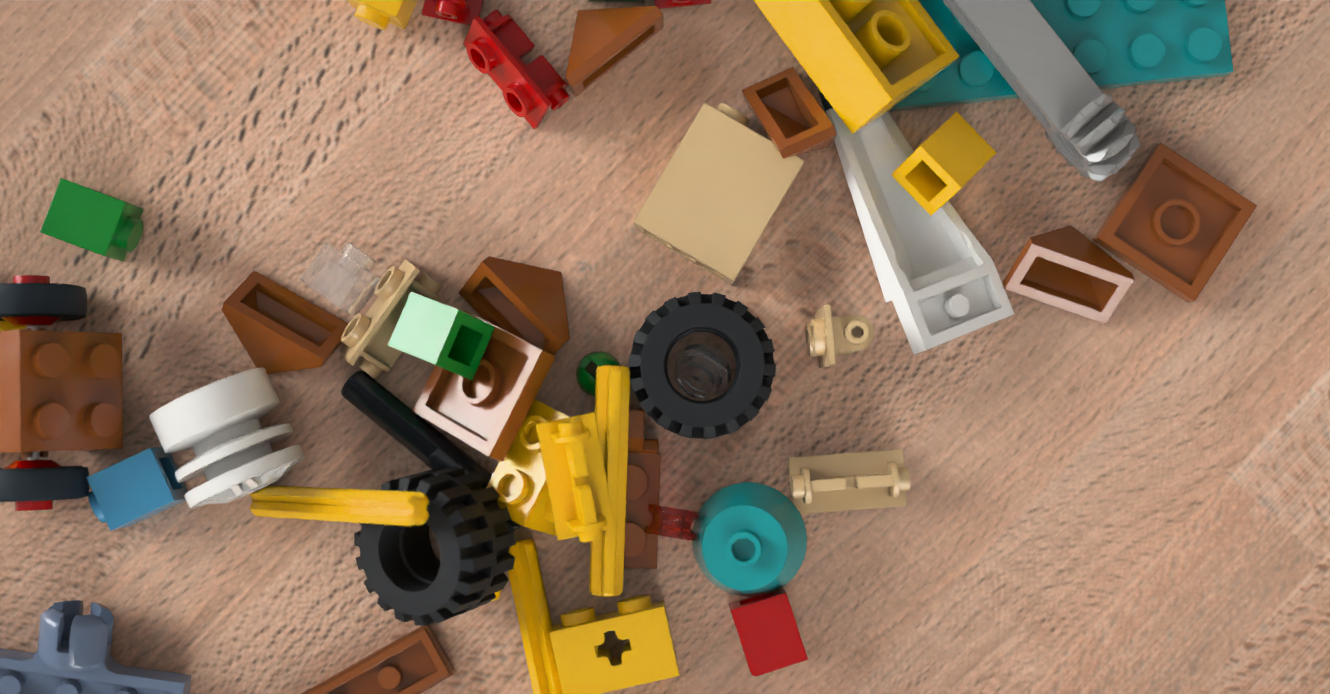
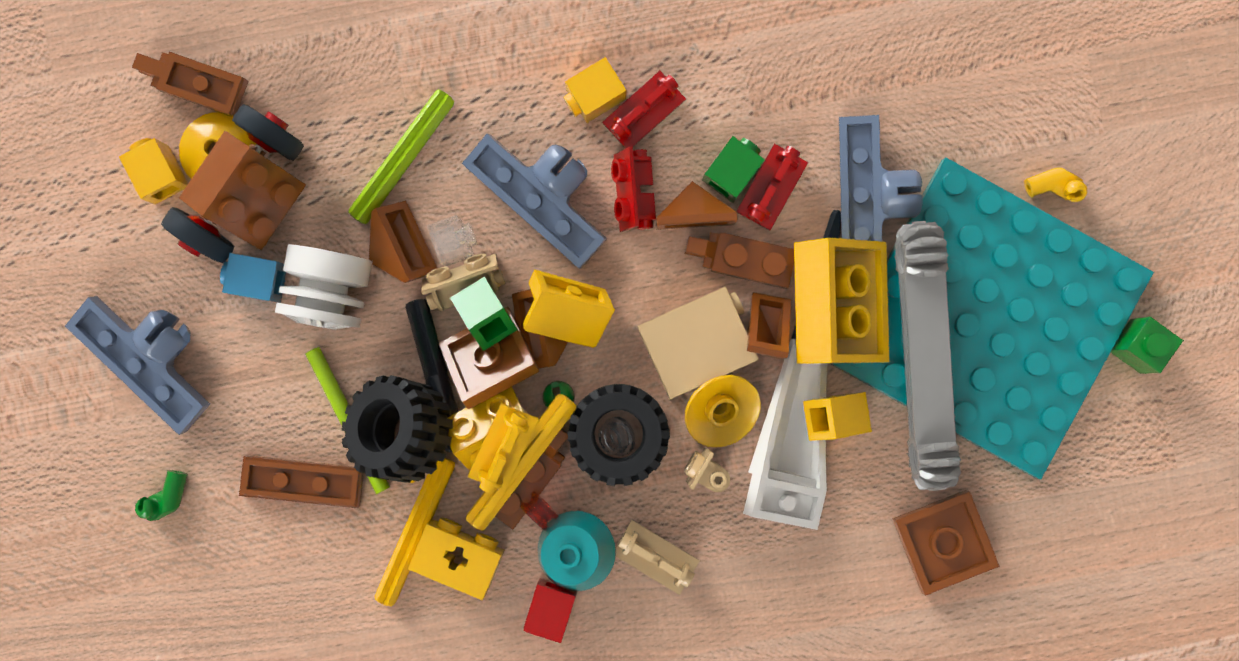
camera: 35 degrees right, 0 degrees up
(93, 221) = (335, 110): green brick -> none
(211, 221) = (401, 156): none -> lime axle
(341, 505) = (360, 370): yellow axle -> none
(344, 566) = (336, 398): none -> lime bar
(408, 150) = (540, 194): none -> sand blue plate
(537, 262) = (567, 309): none -> yellow panel
(703, 57) = (744, 258): none -> dark orange hinge
(822, 254) = (731, 419): none -> yellow dish
(1069, 274) = (865, 529): dark orange slope -> none

